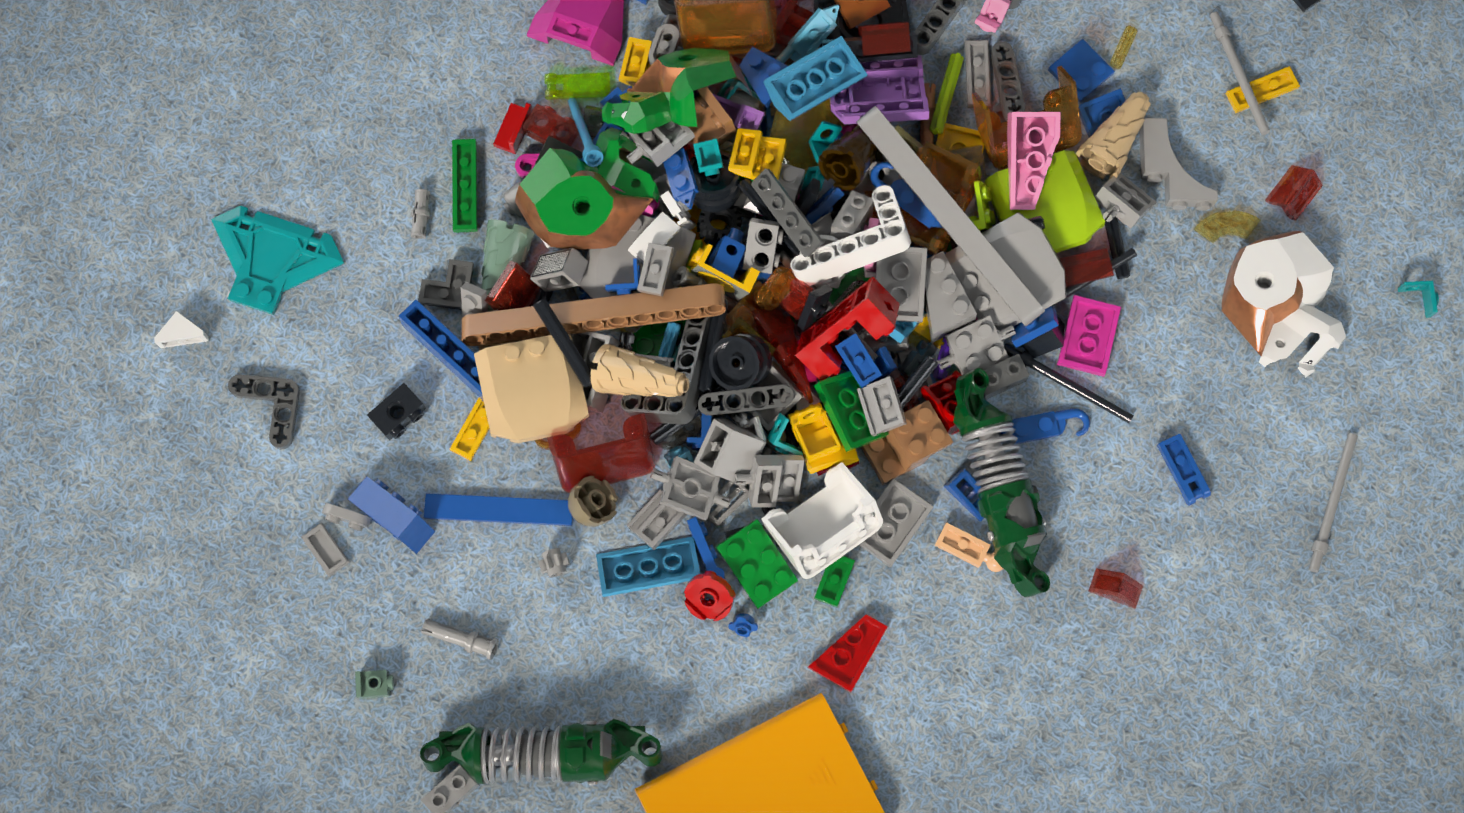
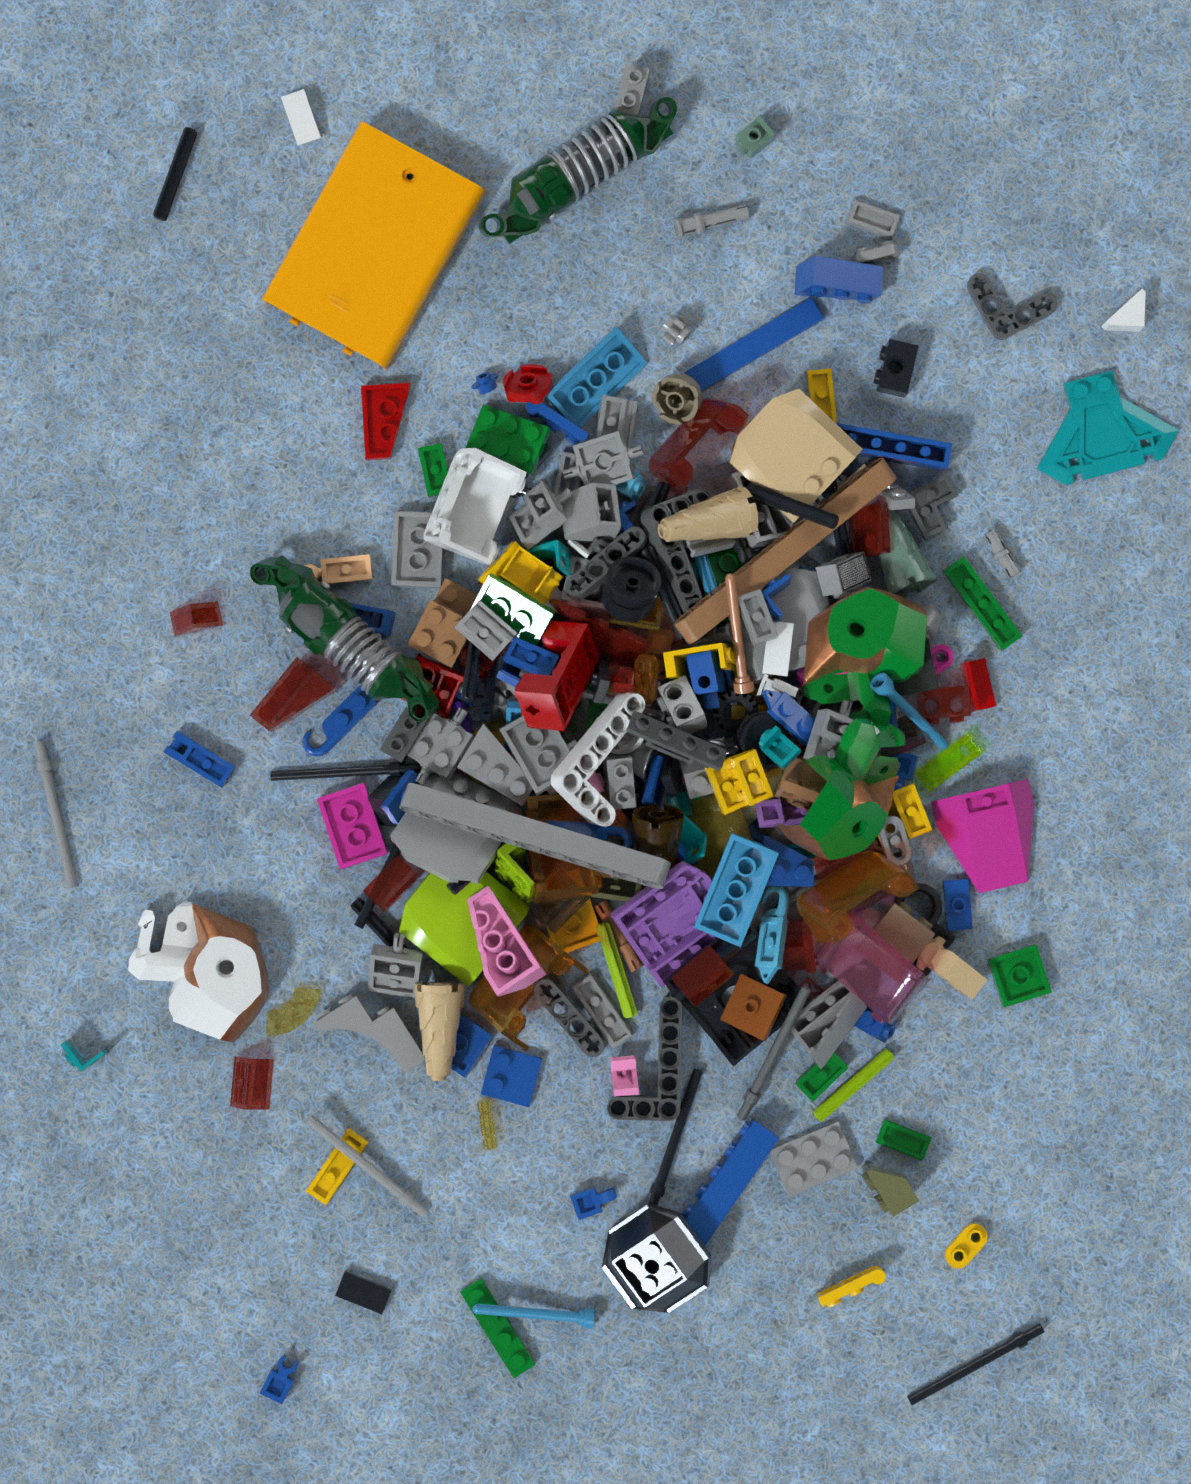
camera: 150 degrees right, 10 degrees up
(699, 234) = (742, 682): none -> nougat piece
(1074, 468) = (292, 695): none -> clear red wedge

